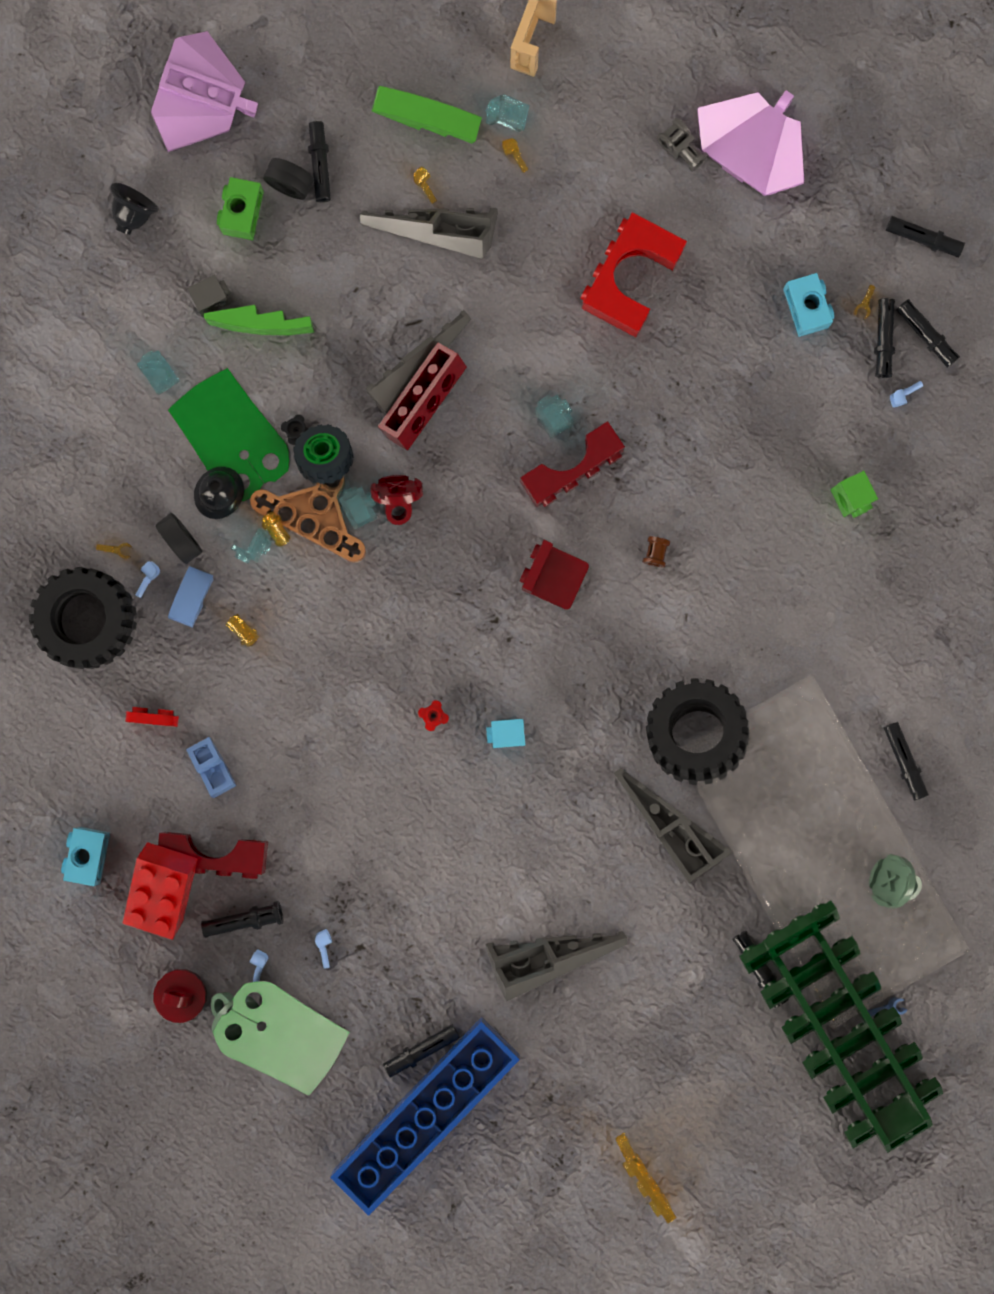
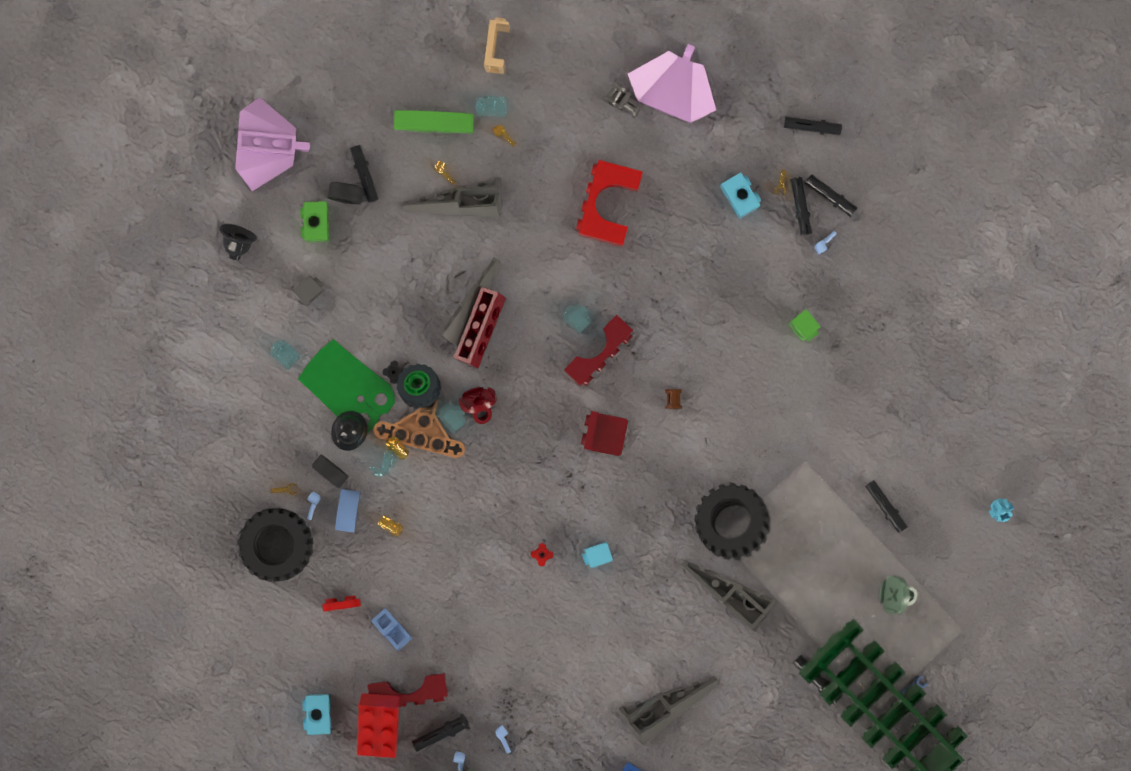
camera: 15 degrees left, 0 degrees up
(248, 320) = (341, 301): bright green slope -> none

